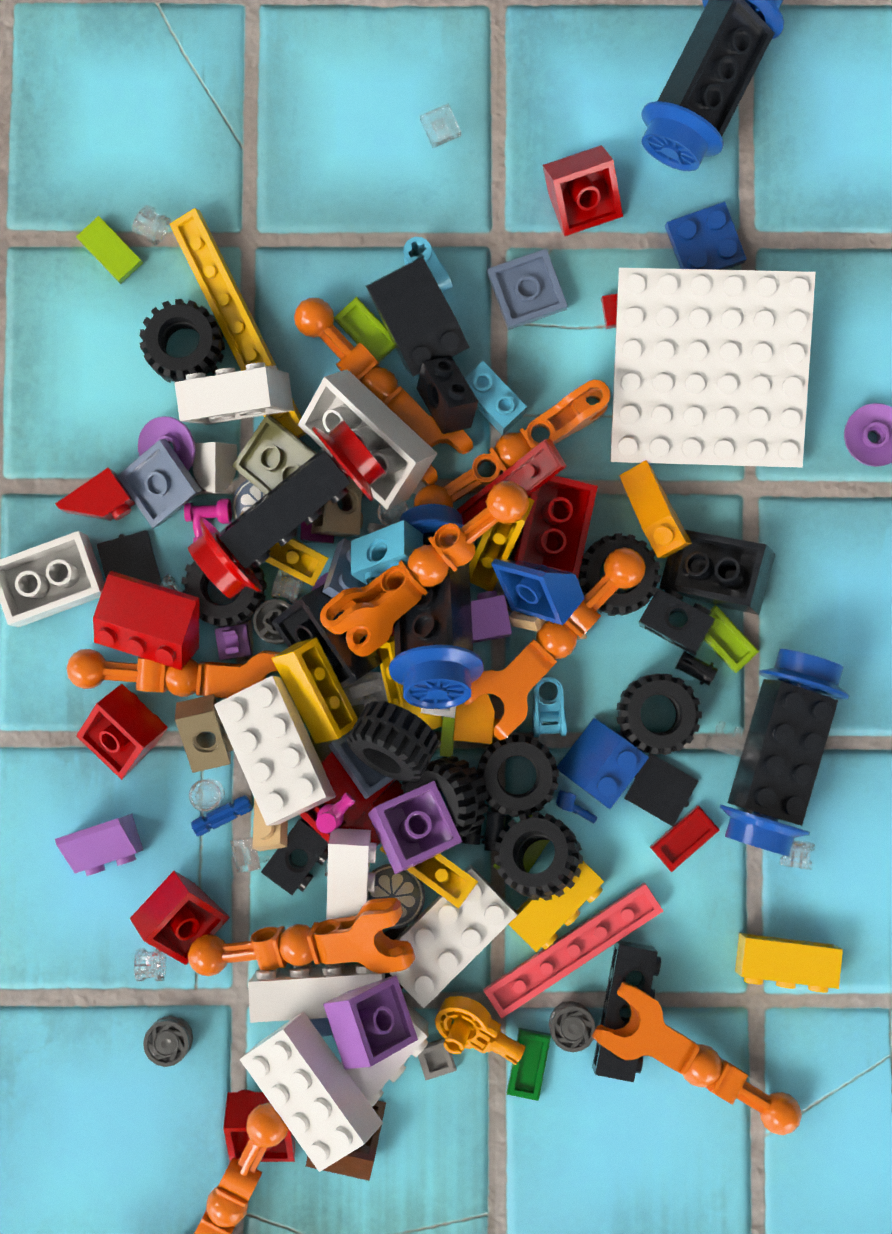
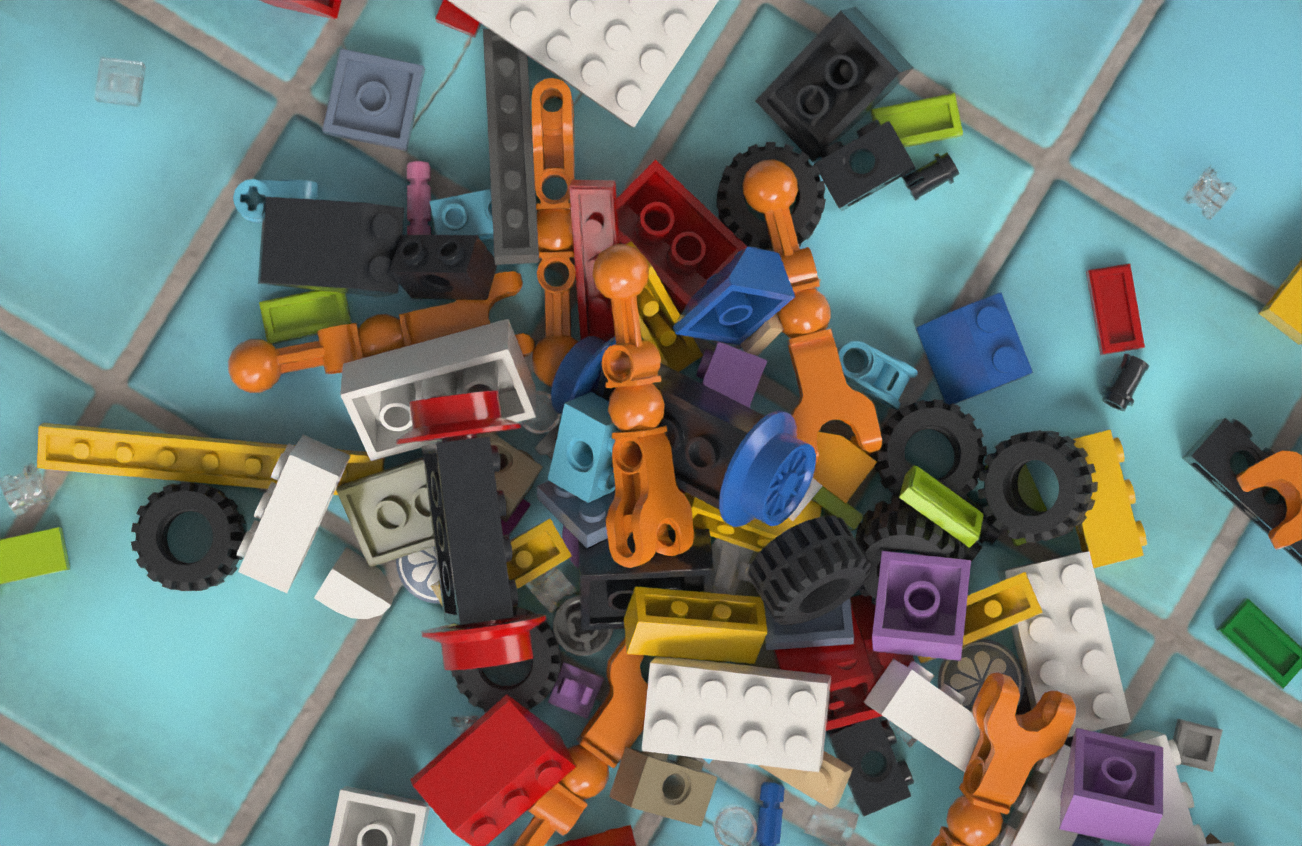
camera: 60 degrees left, 0 degrees up
(99, 498) = (313, 744): red slope -> none
(130, 556) = (401, 751): black piece -> none
(159, 483) = (338, 663): sand blue plate -> none
(173, 431) = (296, 646): medium lavender dish -> none
(221, 511) = (401, 639): dark pink piece -> none
(332, 815) = (850, 694): dark pink piece -> none
(474, 1029) = (1188, 680): light orange pin -> none
(483, 353) = (418, 198): none -> bright pink axle
(487, 802) = (941, 506): none -> lime tile
(543, 392) = (510, 152): none -> dark grey plate
(566, 802) = (992, 417): blue hand -> none
(571, 1026) = (1251, 567): dark grey wheel -> none
(573, 950) = (1166, 513): coral plate -> none
(640, 873) = (1124, 383): none -> black pin
(654, 510) = (721, 112): light orange slope -> none
(661, 789) = (1044, 301): black piece -> none
(686, 714) = (982, 225): black tyre -> none
(723, 743) = (1036, 197): clear tile -> none
(783, 750) = (1085, 136): black brick -> none

